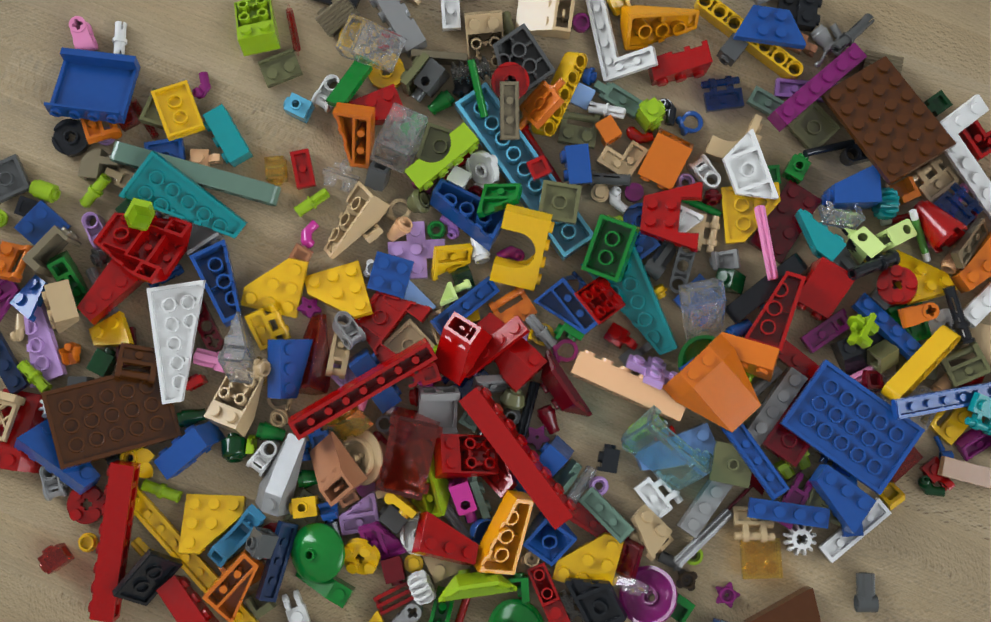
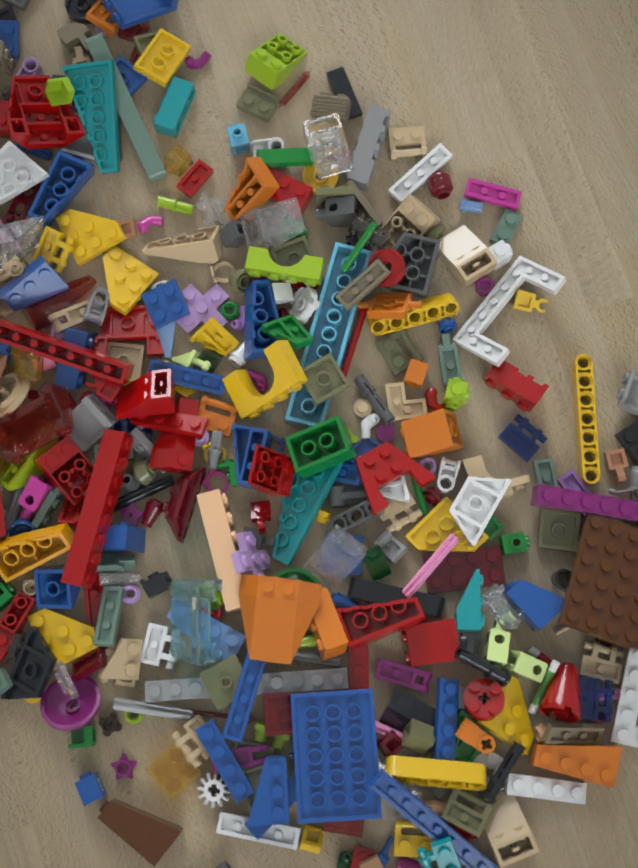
camera: 50 degrees right, 5 degrees down
(44, 190) = (28, 19): lime brick -> none
(95, 190) = (56, 51): lime pin -> none
(204, 157) = (144, 105): light nougat plate -> none
(309, 312) = (90, 270): magenta plate -> none
(373, 233) = (187, 266): tan plate -> none
(401, 227) = (207, 282): light nougat cone -> none
(441, 102) = (331, 234): green cone -> none
(538, 167) = (337, 342): red plate -> none
(577, 164) = (366, 369): blue brick -> none
(582, 96) = (427, 334): light blue slope -> none
(606, 110) = (431, 359): white axle -> none
(652, 24) = (529, 338): light orange wedge -> none
(667, 559) = (113, 692): dark grey pin -> none
(670, 112) = (474, 407): black arm -> none
(684, 130) = (468, 432): blue piece -> none
(731, 51) = (563, 416): dark grey brick -> none
(770, 27) = (606, 429): blue wing -> none
(828, 148) = (549, 553): black bar -> none
(861, 328) = (423, 696): lime hips -> none
(889, 206) = (546, 638): teal gear -> none
(906, 190) = (570, 646): orange panel -> none

